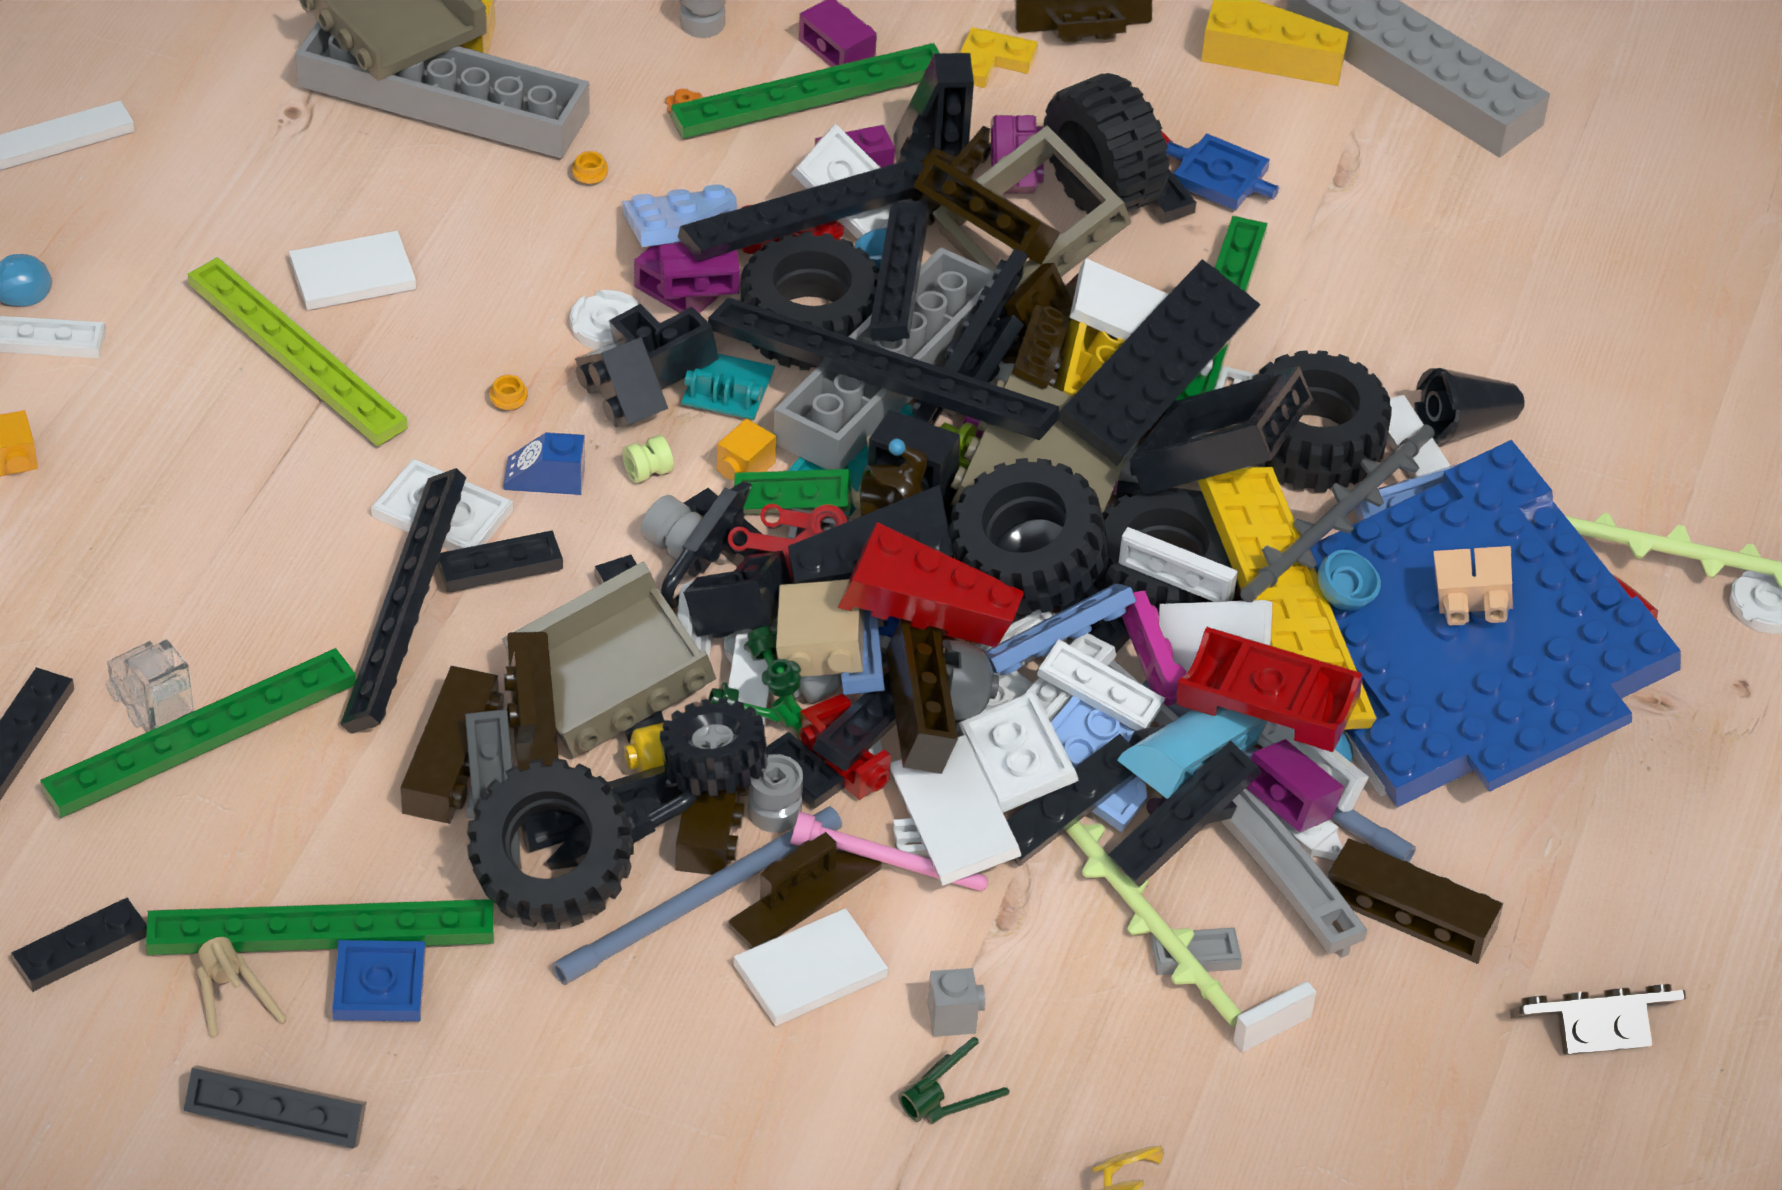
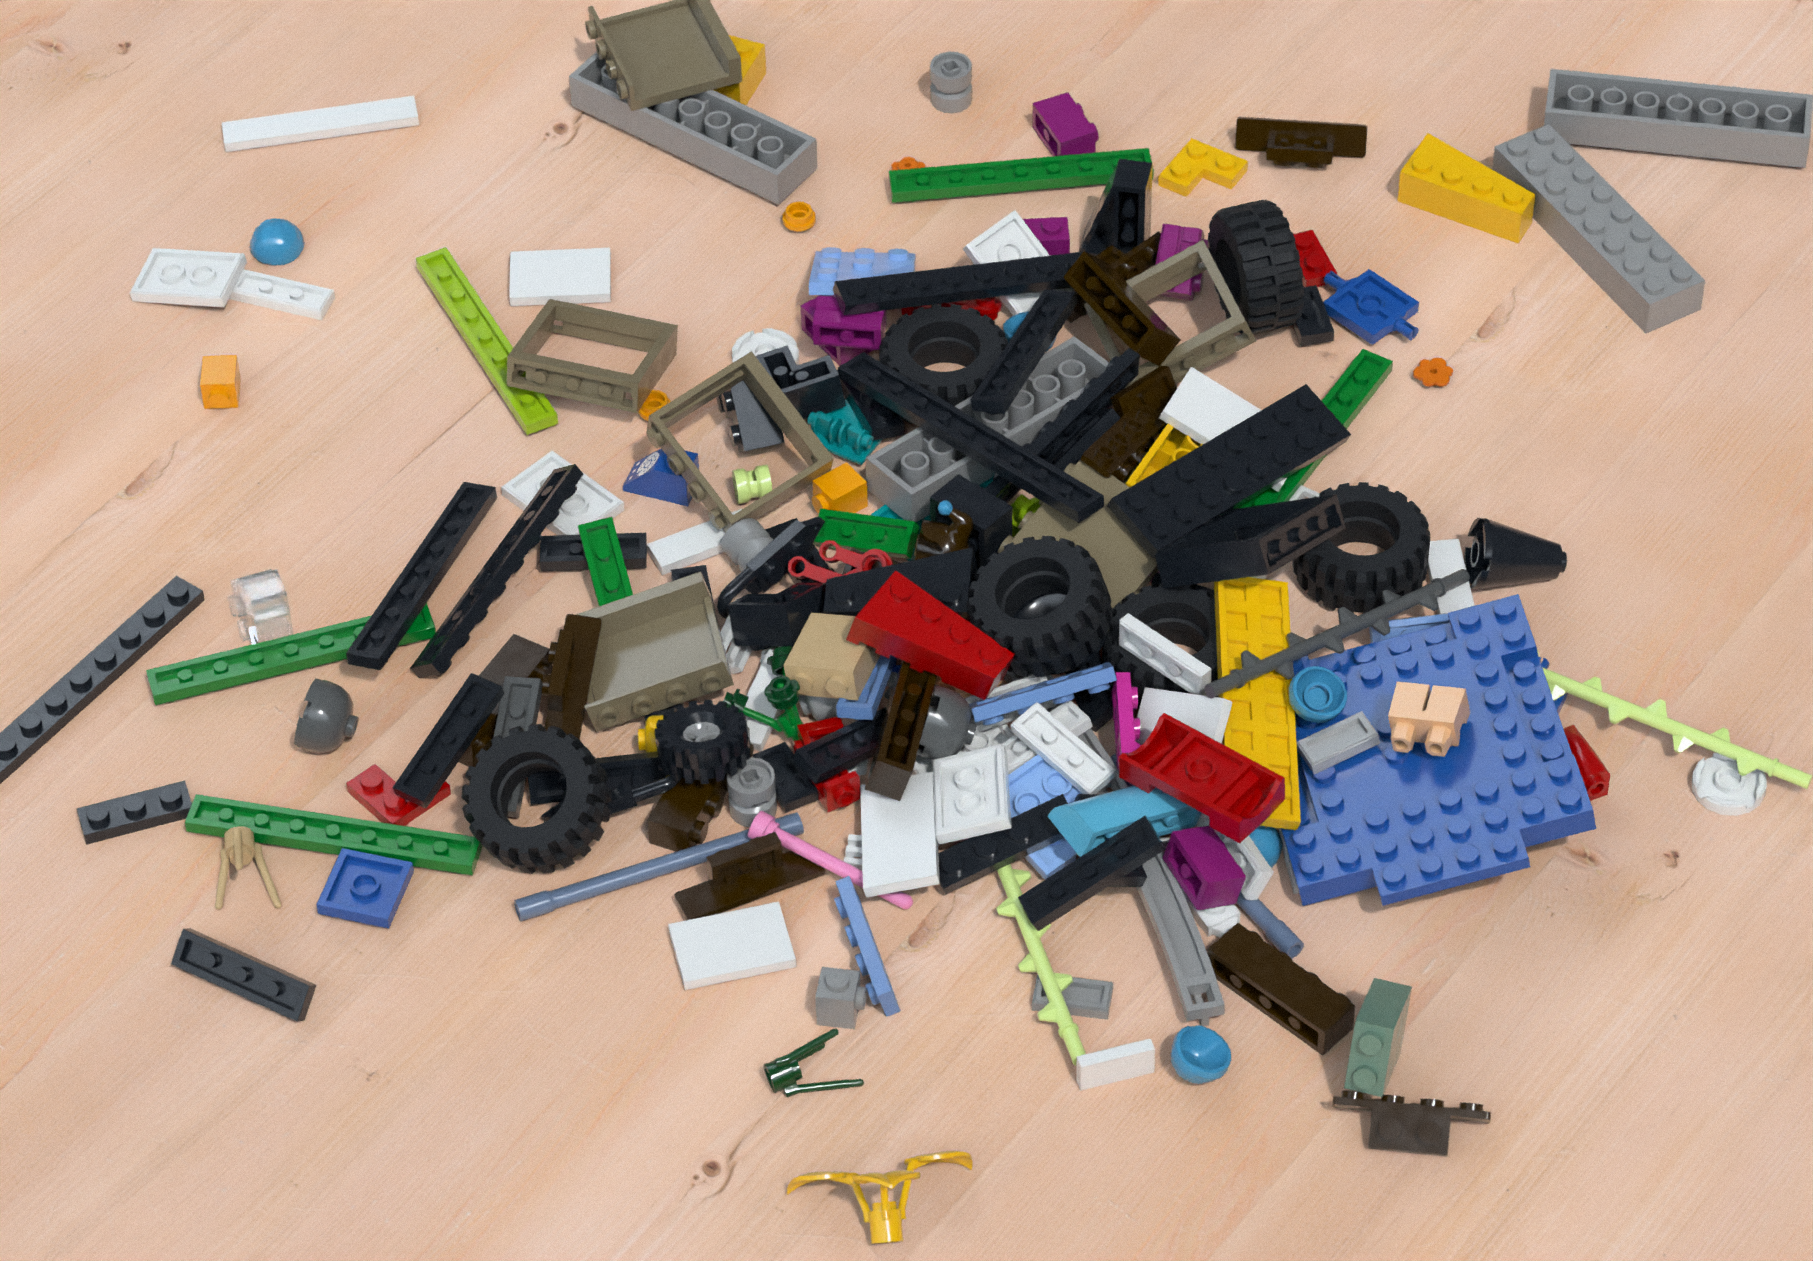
camera: 20 degrees right, 0 degrees up
(272, 797) = (326, 718): none -> dark grey cylinder
(322, 621) = (421, 576): none -> black plate
(375, 877) = (375, 793): none -> red plate
(424, 797) = (448, 740): none -> black plate
(426, 376) = (584, 381): none -> dark tan window
(523, 570) = (605, 560): none -> green plate
(607, 532) = (686, 547): none -> white tile
(663, 371) = (779, 408): none -> dark tan window
(752, 361) = (874, 417): none -> black plate
(968, 948) = (869, 958): none -> medium blue plate
(1308, 229) = (1433, 372): none -> orange plant
(1360, 989) = (1200, 1054): none -> dark azure piece
(1384, 627) = (1338, 742): none -> light grey tile
(1546, 933) = (1377, 1037): none -> sand green brick

